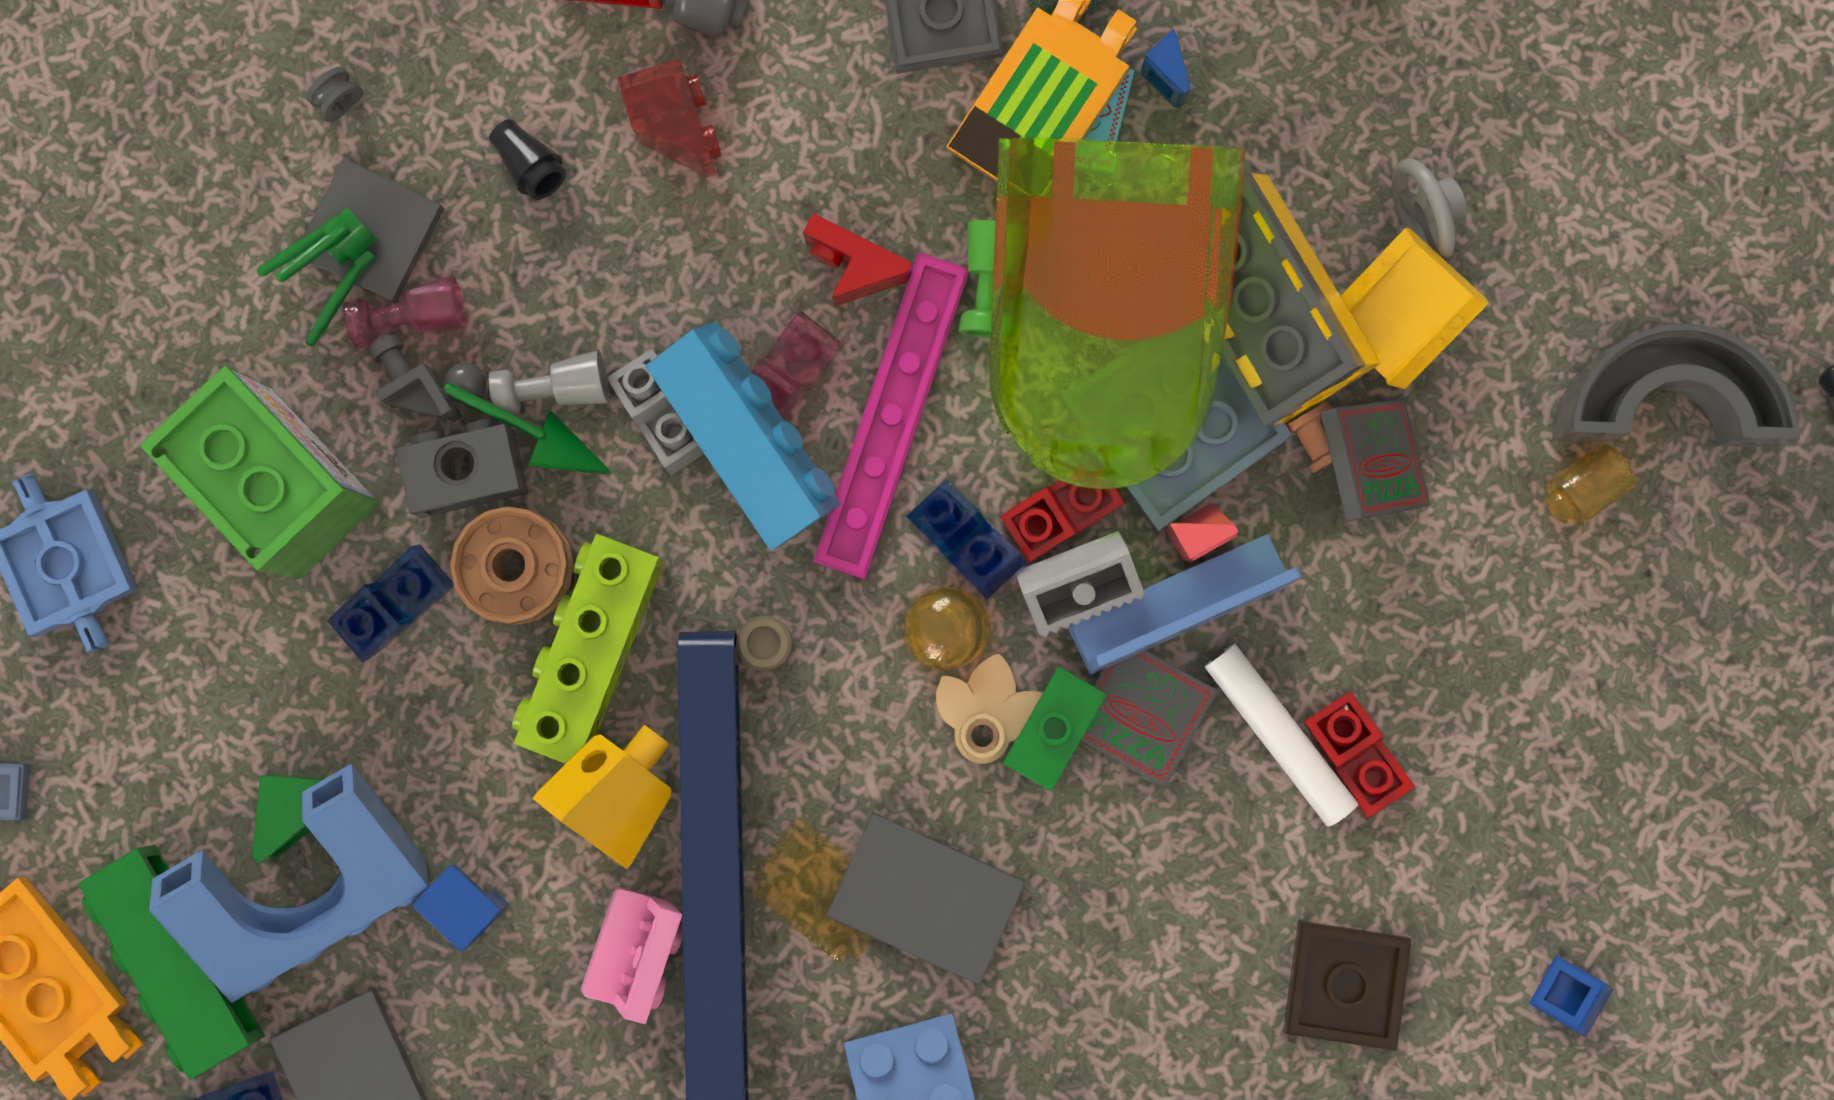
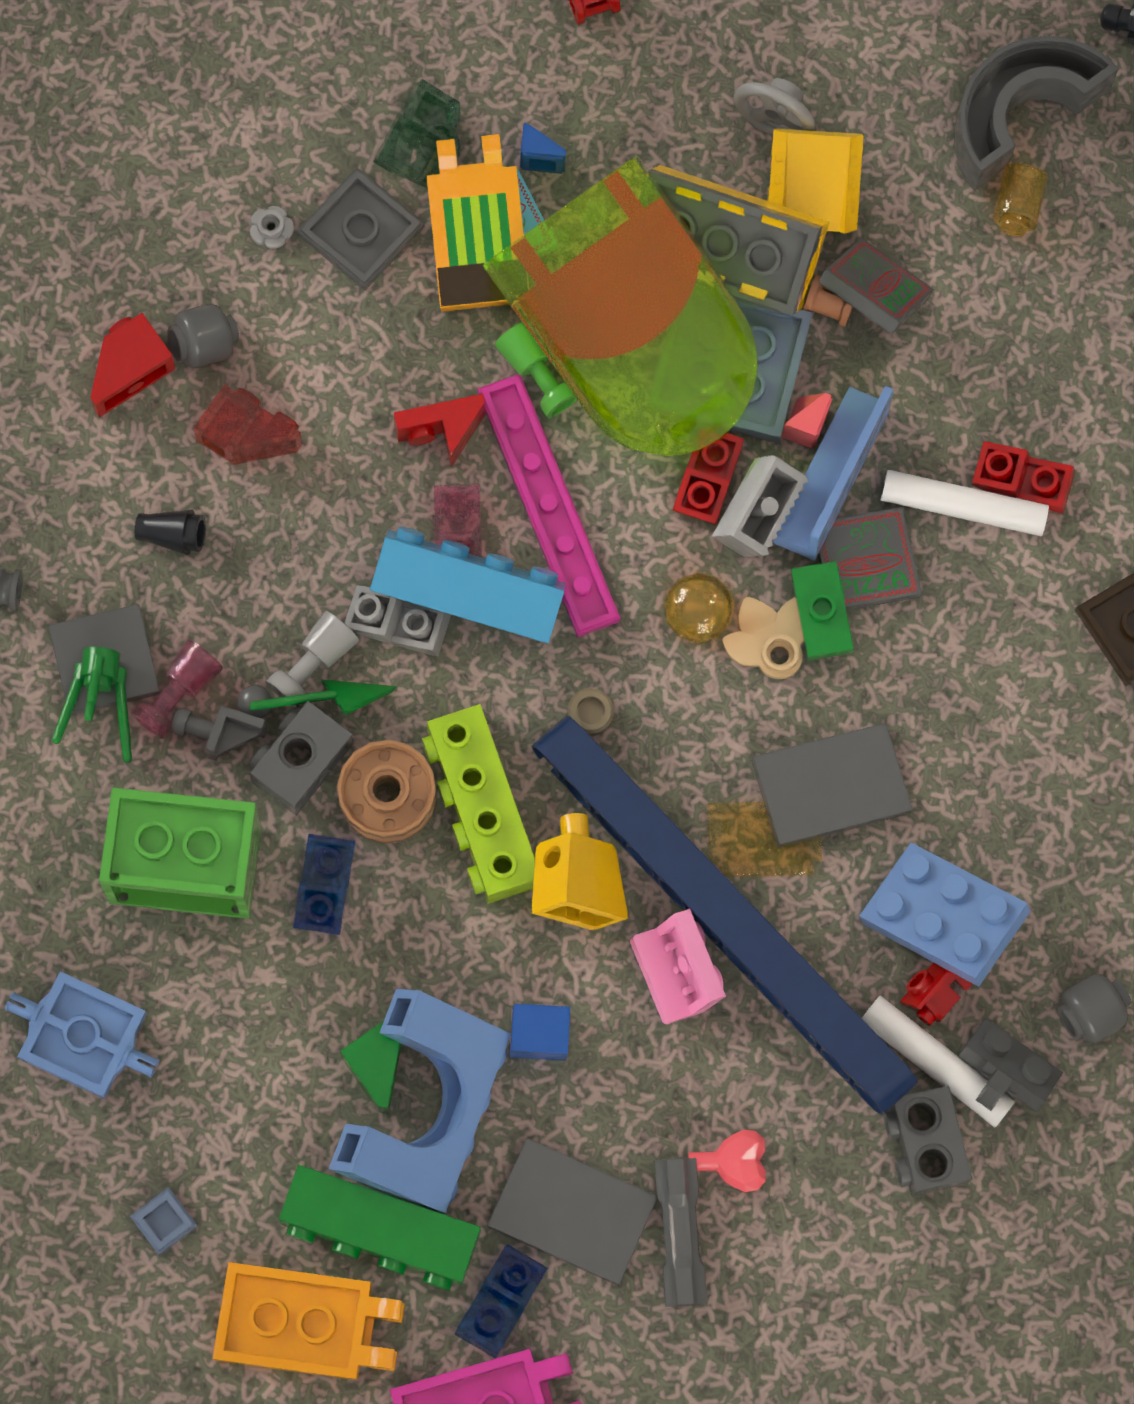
camera: 50 degrees left, 10 degrees down
(966, 539) = (663, 542): clear blue slope -> none

